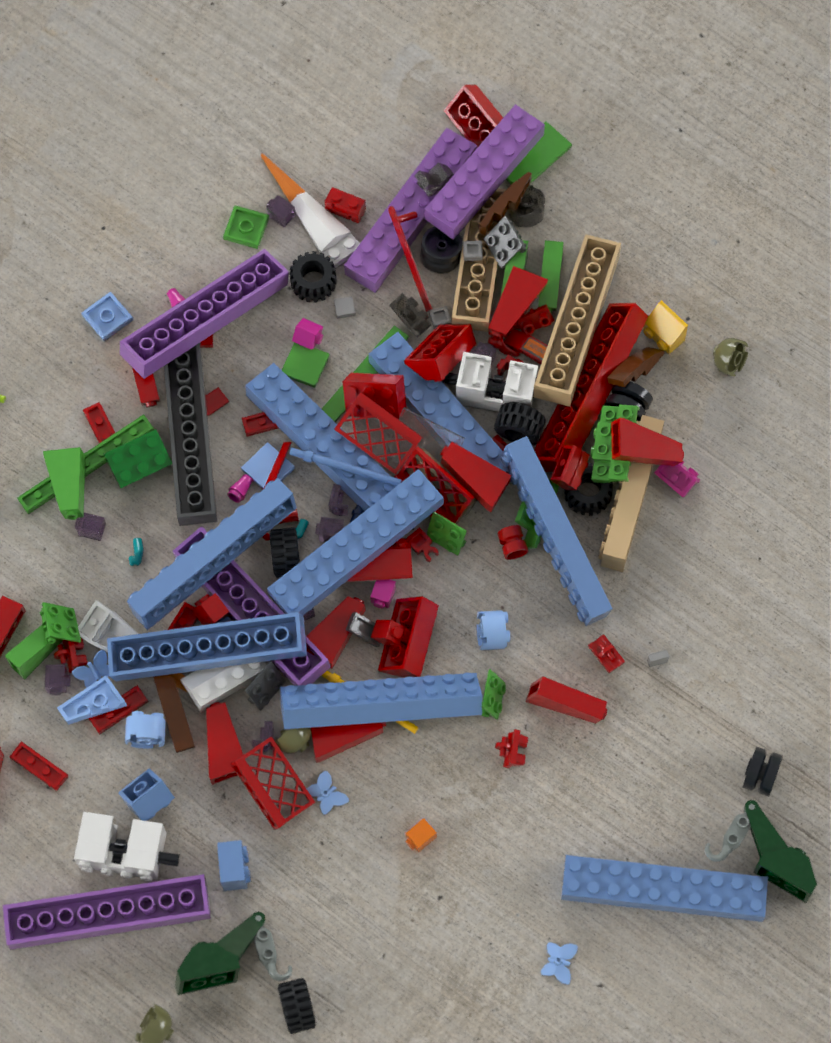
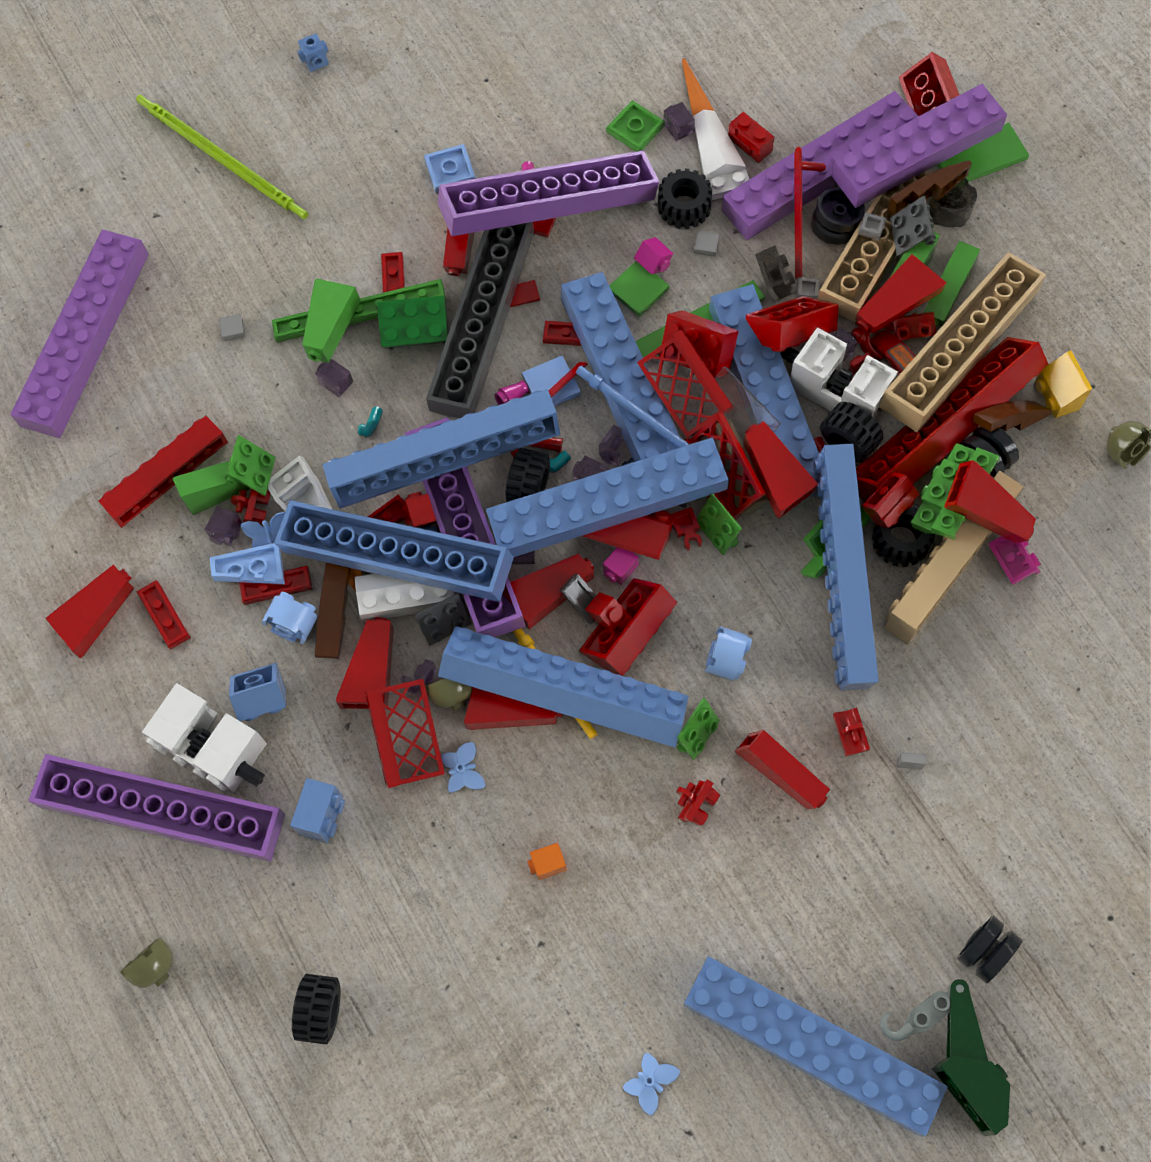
camera: 25 degrees right, 0 degrees up
(218, 963) = (248, 918): dark green slope -> none
(435, 179) = (857, 135): clear smoke brick -> none
(512, 540) = (791, 562): red wheel -> none

